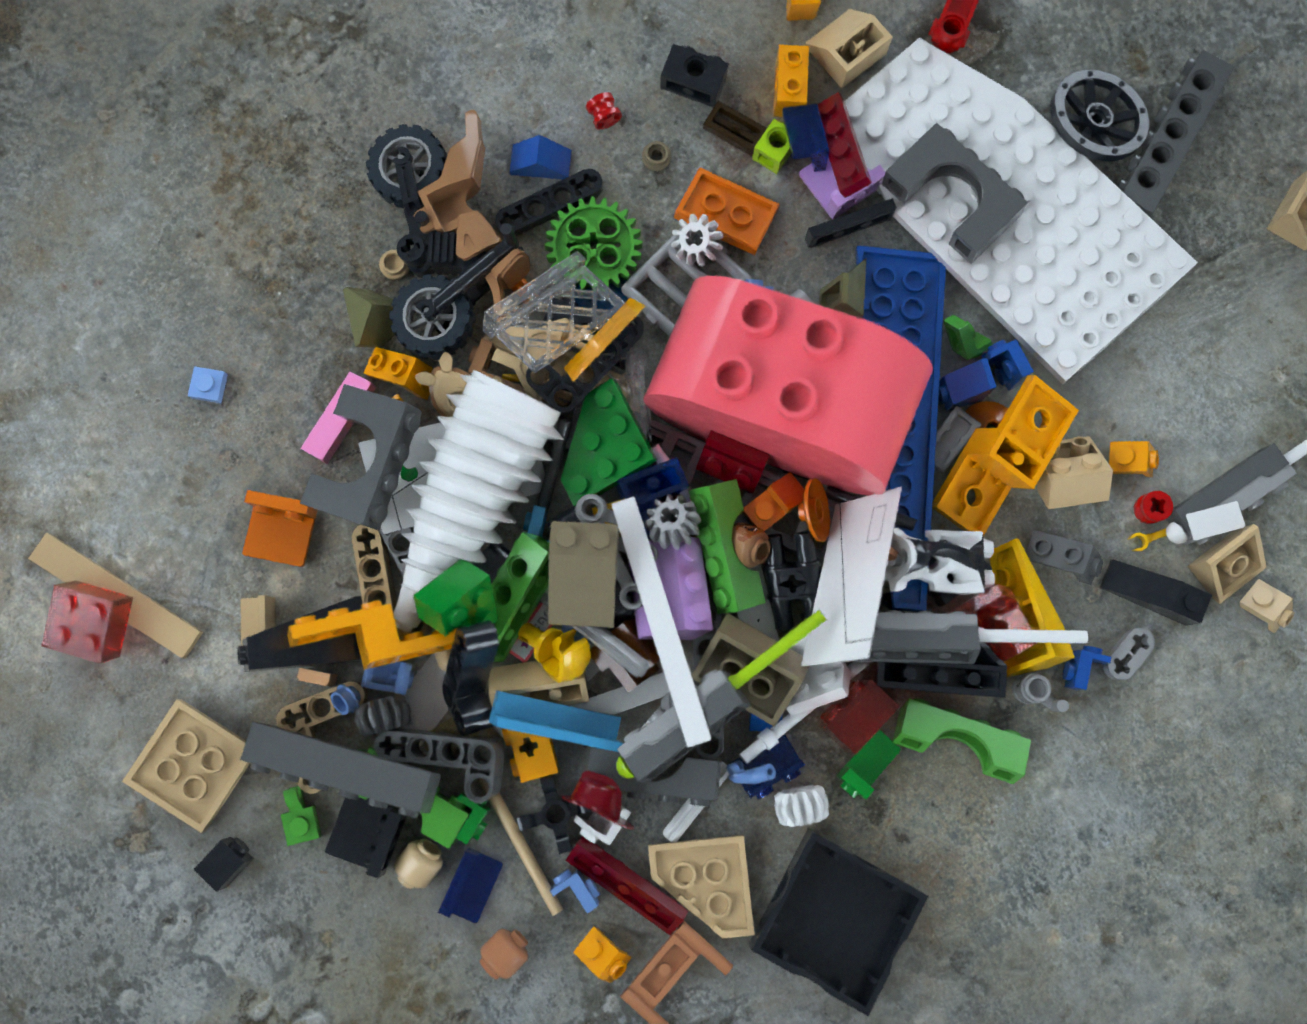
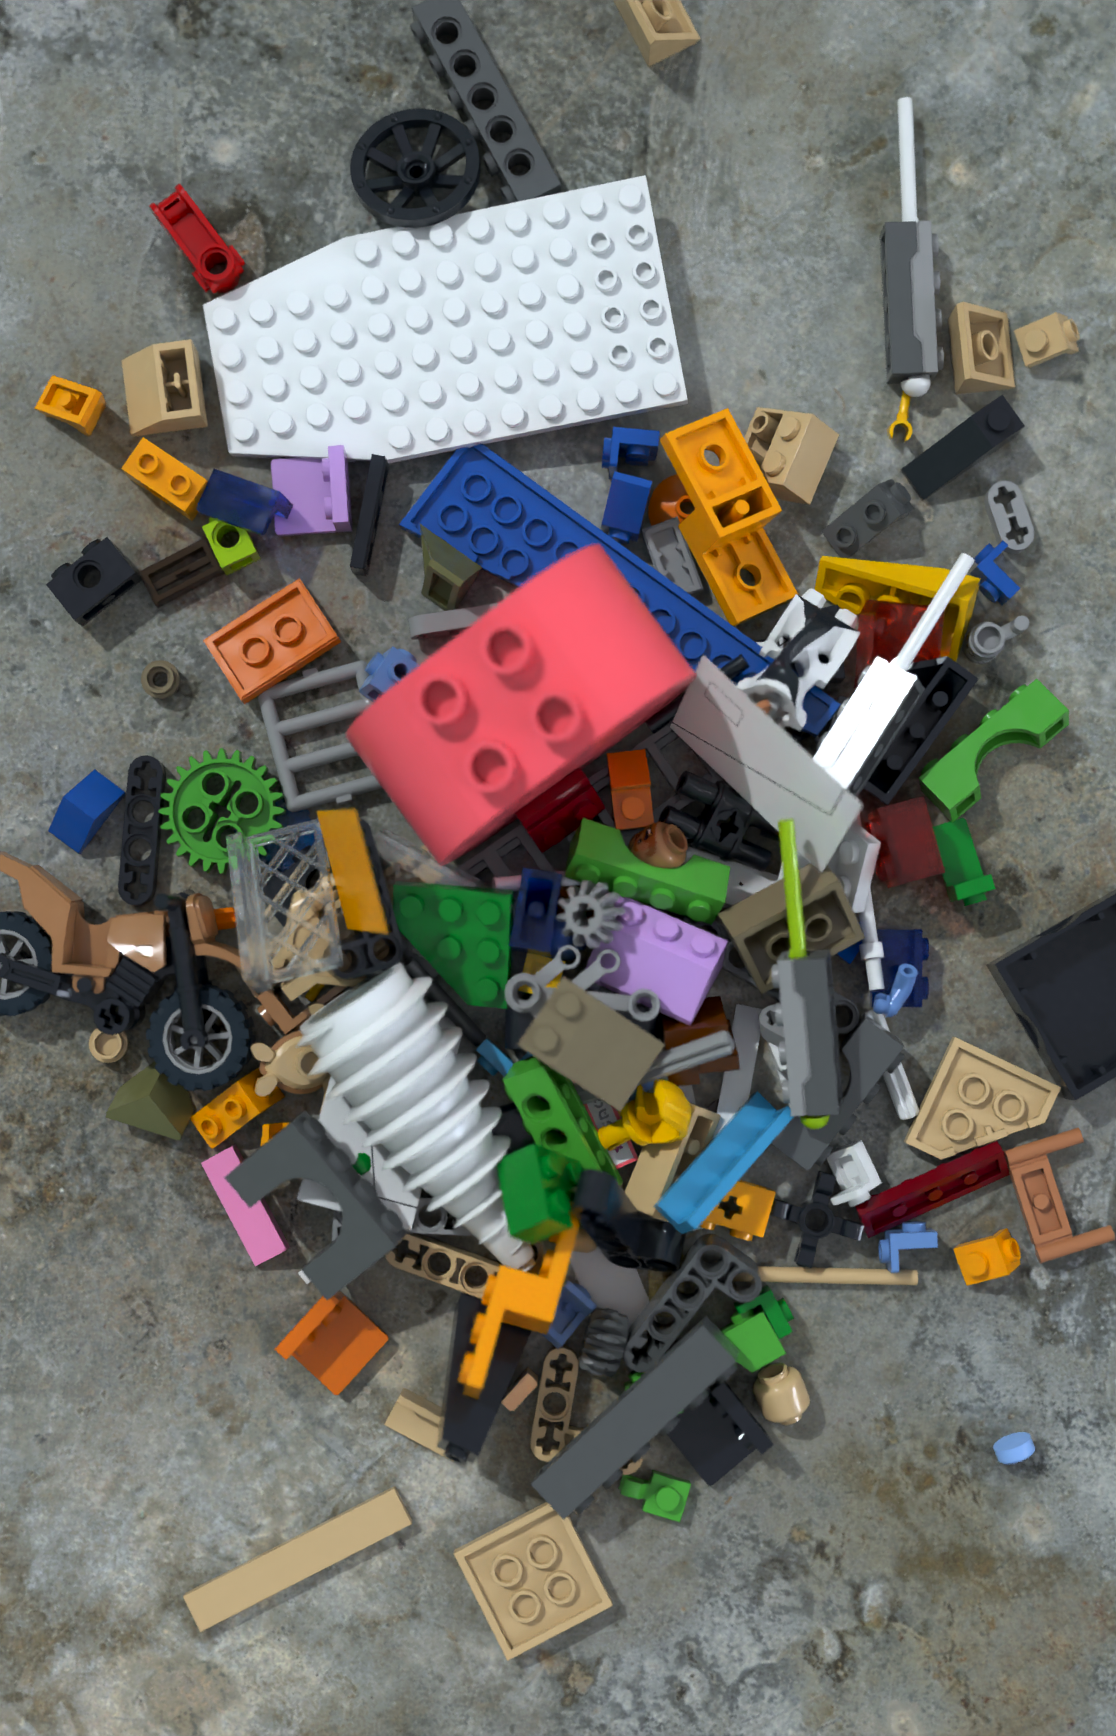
camera: 55 degrees left, 5 degrees up
(87, 621) = (312, 1603): clear red brick -> none
(207, 384) = (120, 1328): light blue plate -> none
(224, 863) = (658, 1598): black brick -> none
(345, 699) = (564, 1372): medium blue plate -> none
(471, 886) = (836, 1351): clear blue panel -> none
(504, 954) = (926, 1357): nougat head -> none
(599, 795) = (828, 1162): dark red piece -> none
(603, 110) = (73, 707): red wheel -> none
(661, 622) = (688, 991): white sticker -> none
(701, 228) = (303, 702): white gear -> none
(801, 805) = (960, 958): white gear -> none
(815, 510) = (666, 754): orange dish -> none
(843, 145) = (281, 471): dark red plate -> none
(942, 155) = (357, 373): dark grey arch -> none
(964, 338) = (574, 475): bright green bracket -> none
(1133, 457) = (809, 378): light orange bracket -> none
(1146, 510) = (873, 399): red wheel -> none
(1215, 520) = (928, 338): white sticker -> none

